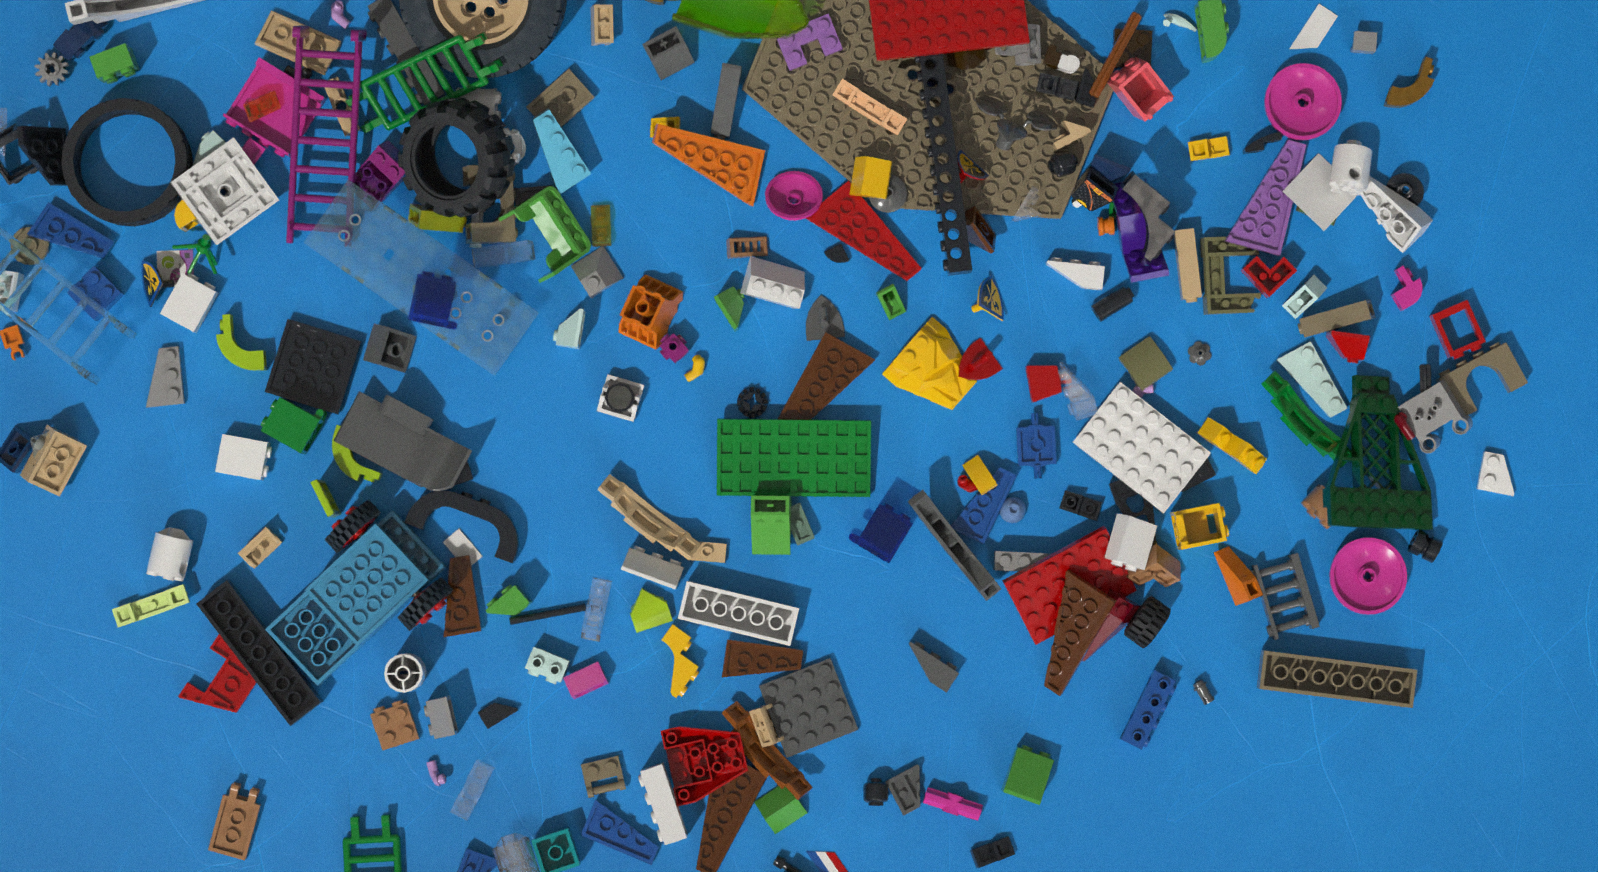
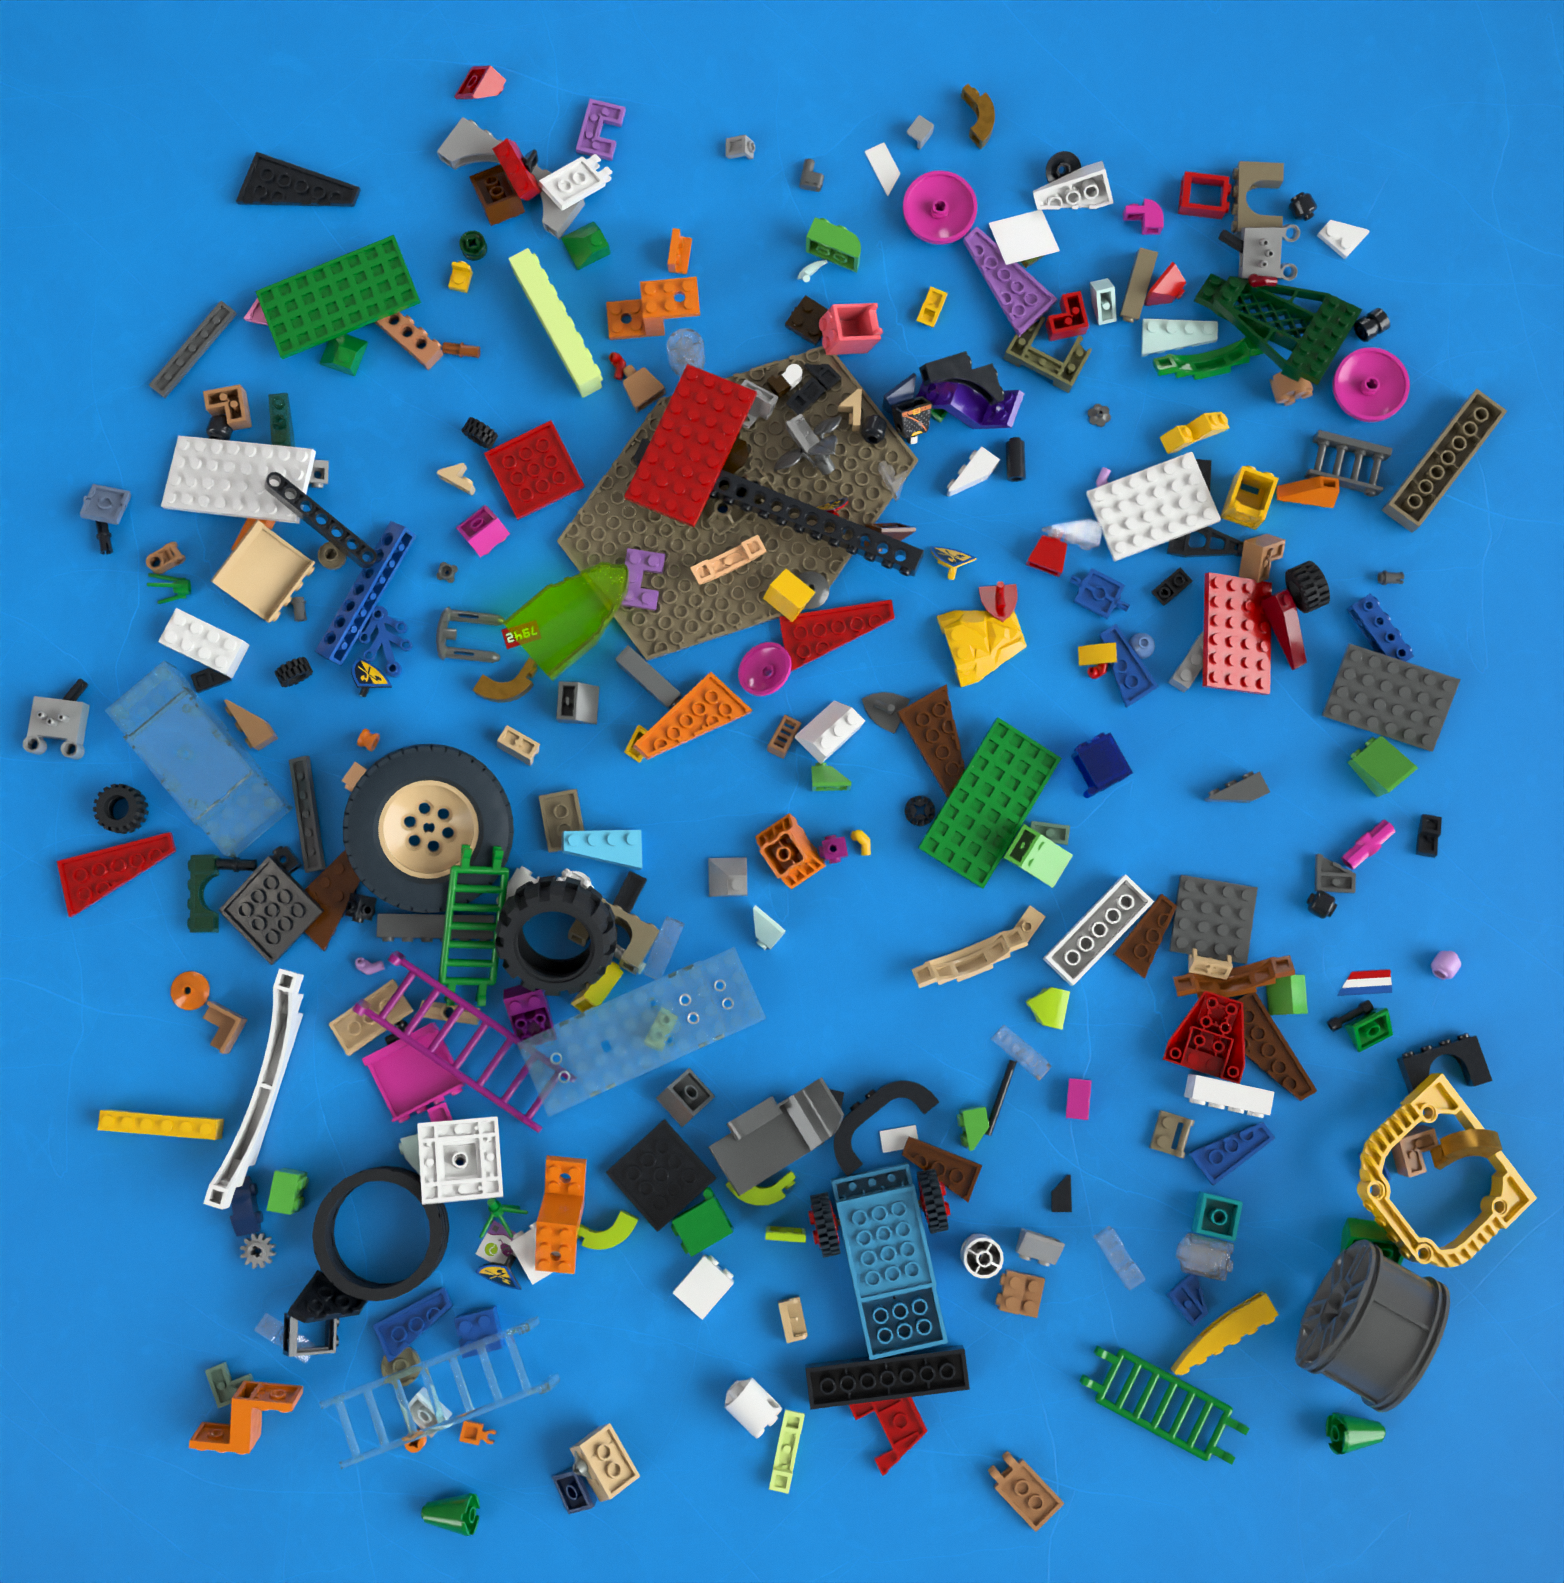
camera: 55 degrees left, 5 degrees down
(167, 379) = (594, 1313): light grey wing -> none
(184, 217) = (460, 1210): yellow brick -> none
(230, 302) = (560, 1214): none -> orange bracket
(261, 105) = (405, 1082): clear orange slope -> none
(433, 300) = (671, 1029): clear blue container -> none
(434, 773) = (1090, 1283): lavender arm -> none
(547, 664) = (1045, 1125): light aqua brick -> none
(557, 227) = (669, 886): bright green windscreen -> none
(601, 225) = (690, 849): clear yellow slope -> none
(620, 398) = (849, 921): piece -> none
(652, 567) = (1015, 980): white slope -> none
(683, 668) = (1118, 1006): yellow arch -> none
(837, 254) = (836, 664): black tile -> none
(890, 302) = (903, 642): bright green slope -> none
(953, 545) = (1148, 711): dark grey arch -> none
(1021, 104) = (801, 433): none -> light grey hinge
(1077, 625) = (1275, 642): reddish brown wing -> none
(1093, 750) = (1390, 697): none -> dark grey plate
(1105, 225) = (946, 427): orange wheel -> none
(1115, 54) = (808, 333): dark orange axle -> none
(1130, 542) = (1232, 559): white brick -> none
(1145, 363) = (1082, 462): olive slope -> none
(1187, 265) = (1020, 379): tan brick -> none
(1258, 145) = (954, 263): black slope -> none
(1350, 167) = (1019, 199): white cylinder -> none
(1499, 423) = (1303, 206): none -> black head

